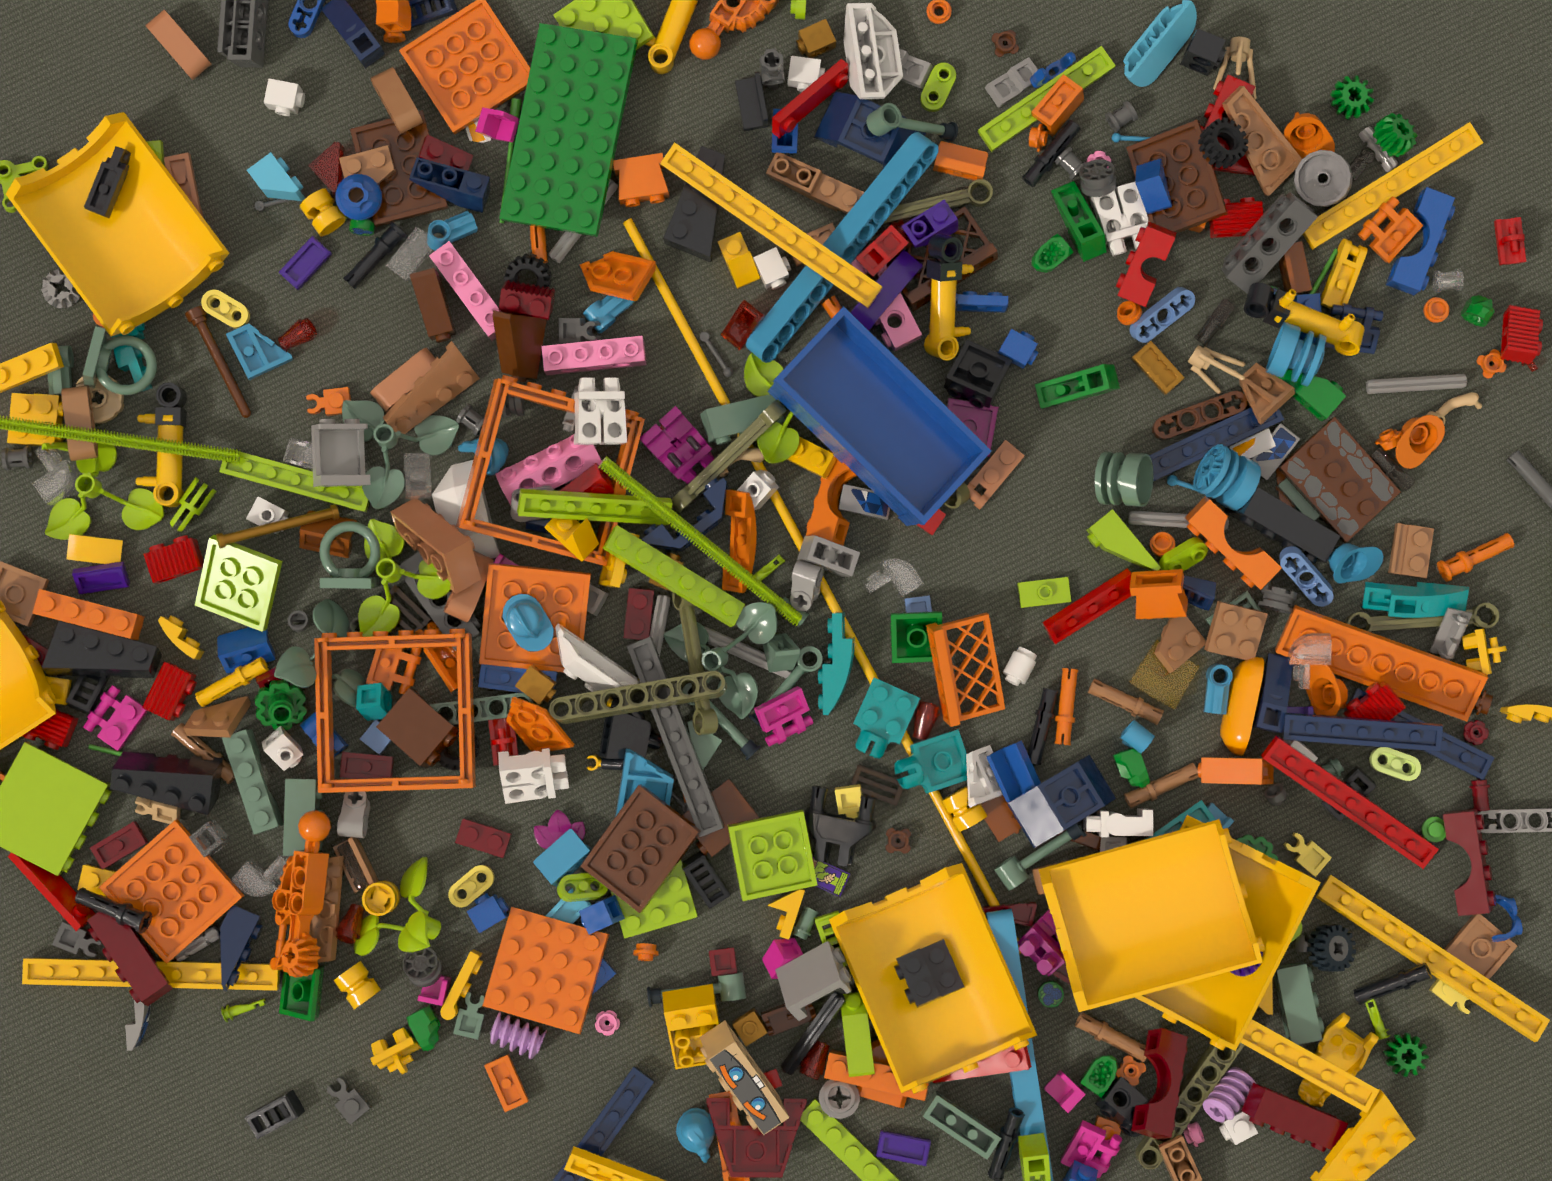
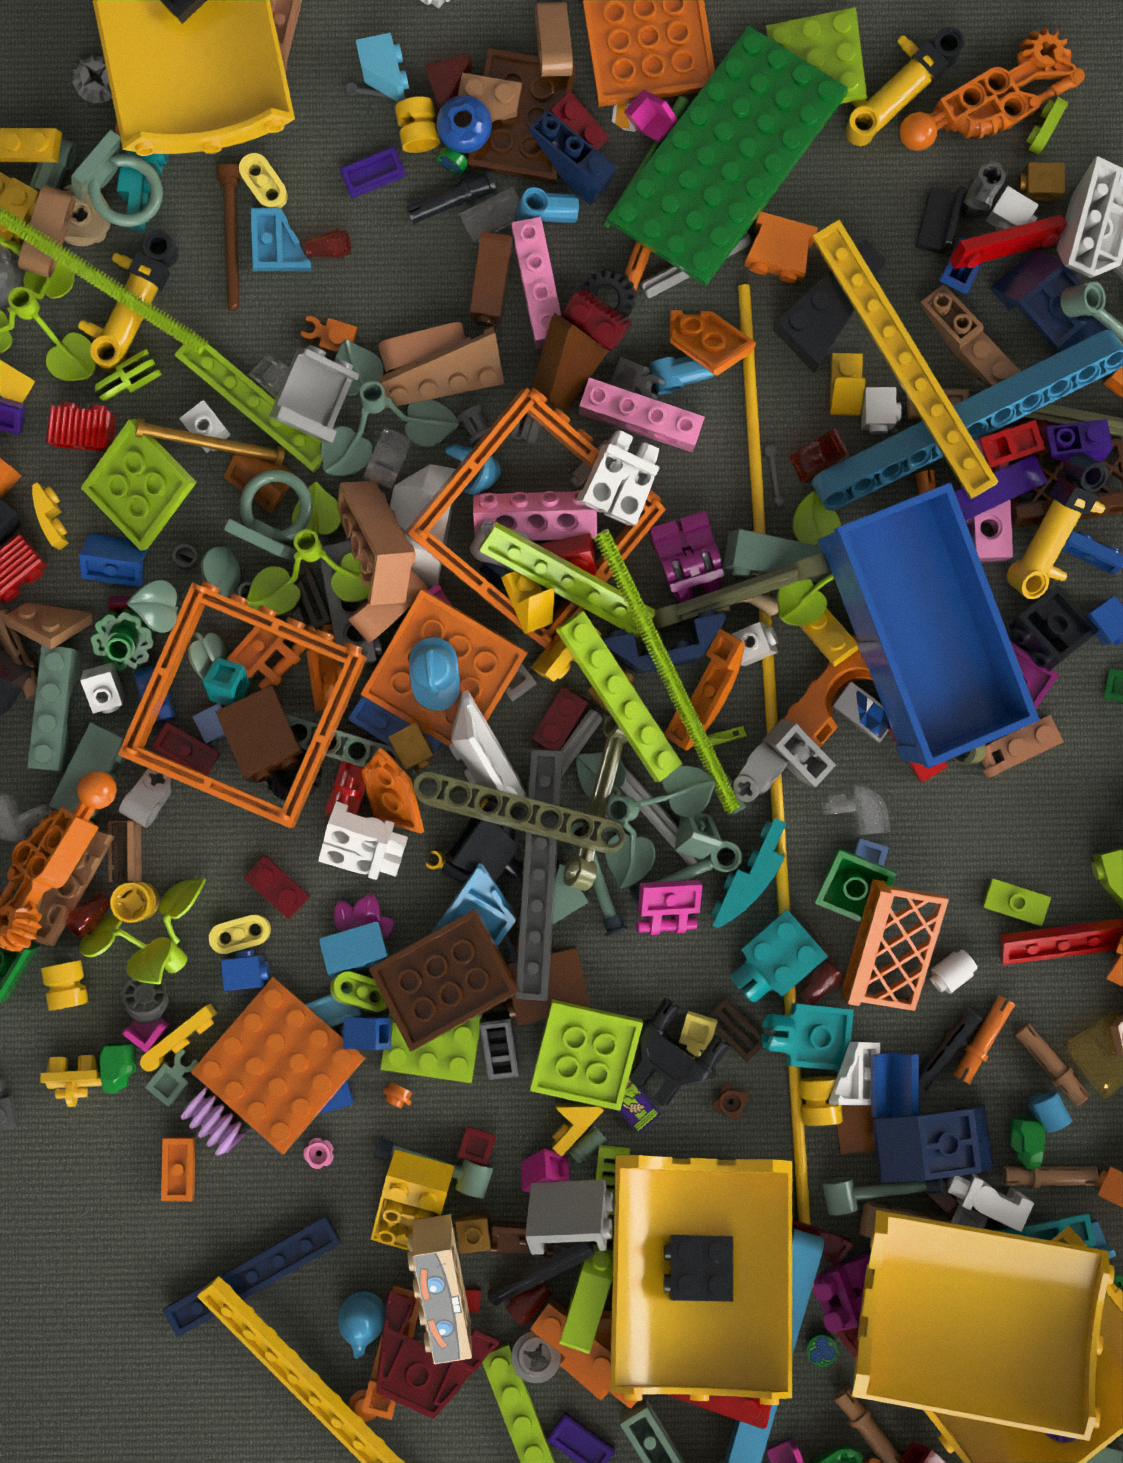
camera: 20 degrees right, 0 degrees up
(239, 677) = (87, 589): yellow pin -> none

